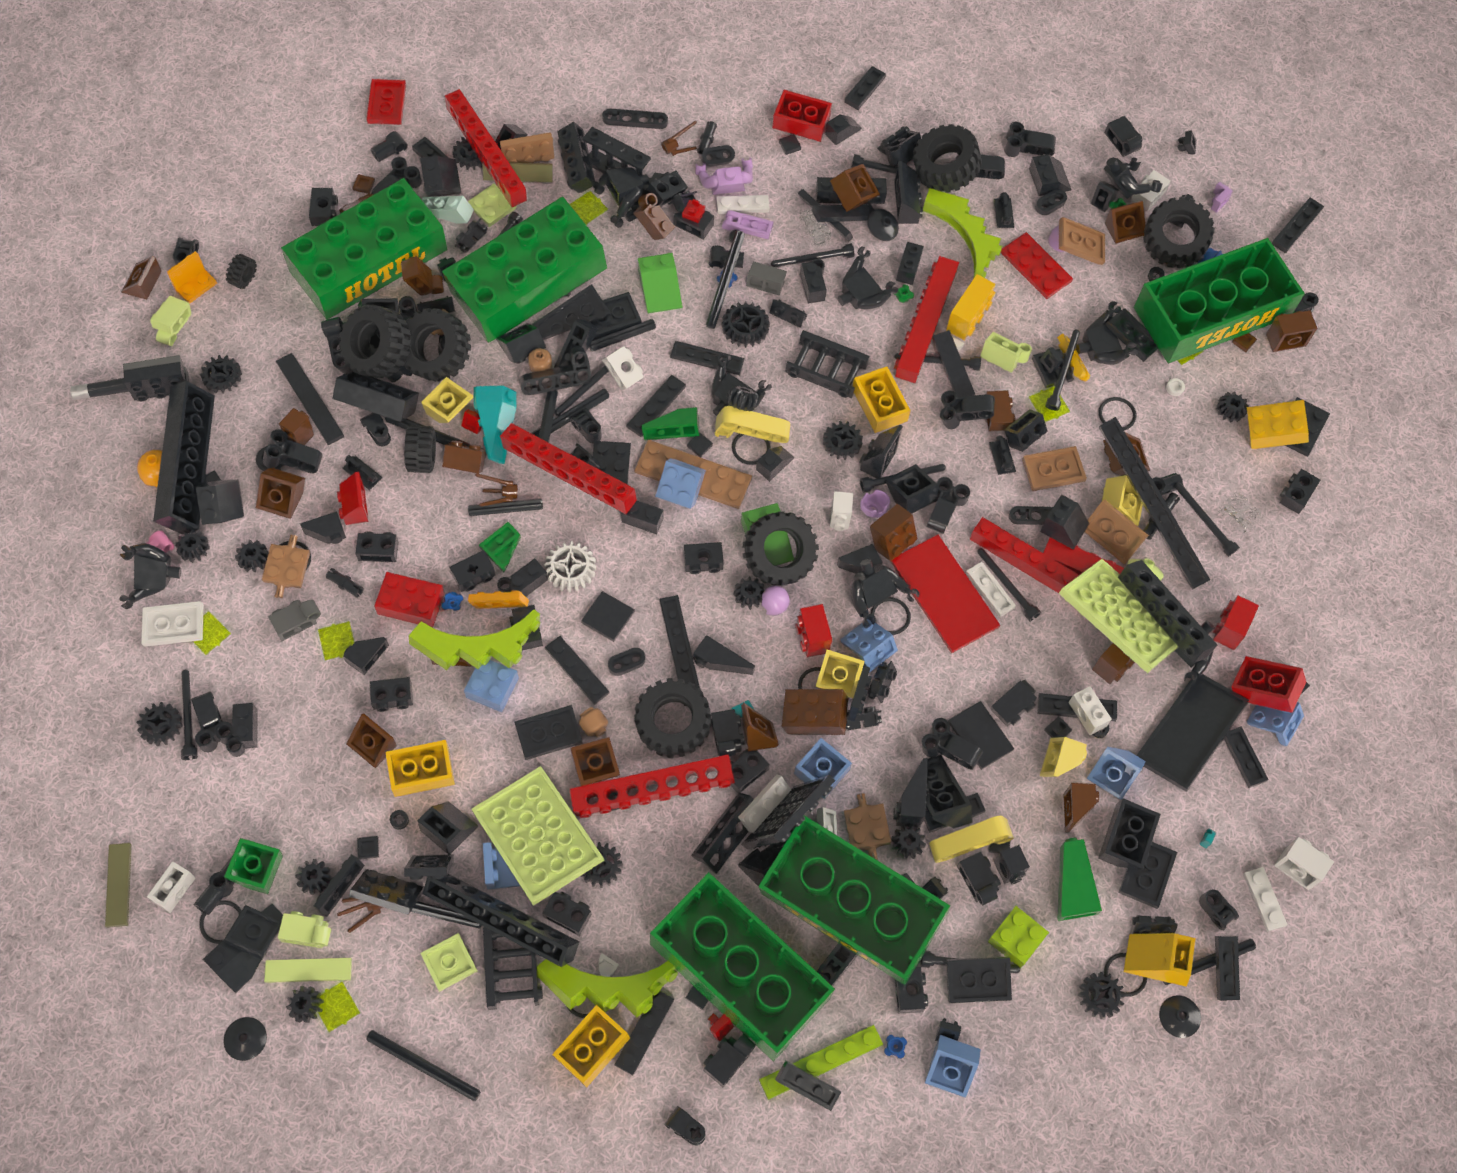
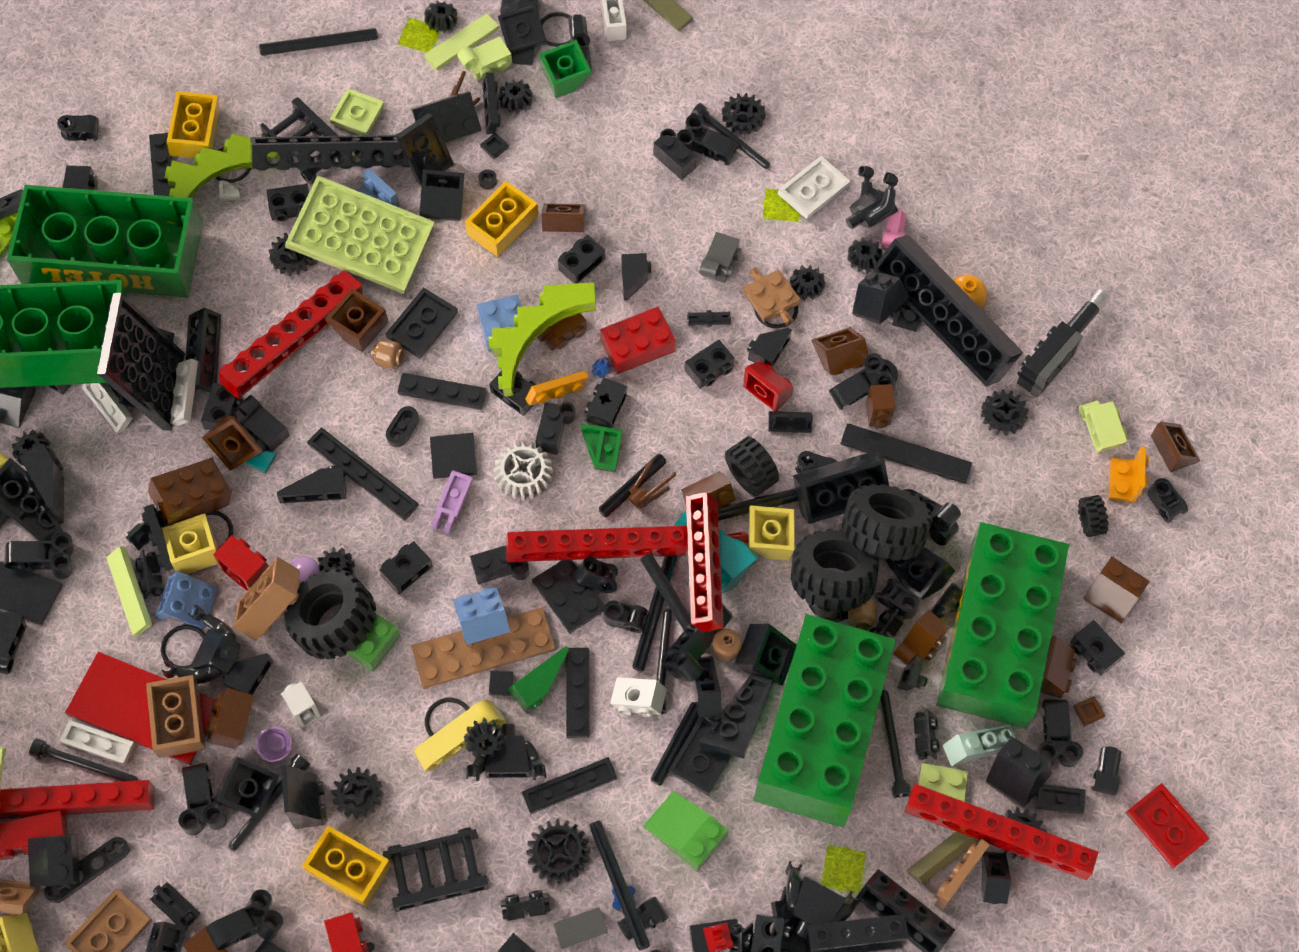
camera: 145 degrees right, 0 degrees up
(274, 227) = (1116, 589): none -> reddish brown slope
(336, 640) = (670, 273): clear neon green piece -> none
(382, 290) = (948, 601): none -> black plate
(512, 400) = (704, 562): none -> red brick
(635, 581) = (452, 500): none -> lavender hinge
(653, 217) = (755, 894): reddish brown hinge -> none
(666, 693) = (310, 376): black tyre -> none
(773, 462) = (410, 717): black slope -> none
(816, 584) = (267, 599): none -> medium nougat brick
(822, 761) = (149, 451): medium blue brick -> none
(867, 826) = (78, 439): medium nougat plate -> none
(904, 678) = (129, 591): none -> yellowish green tile
(929, 558) = (175, 716): none -> medium nougat brick

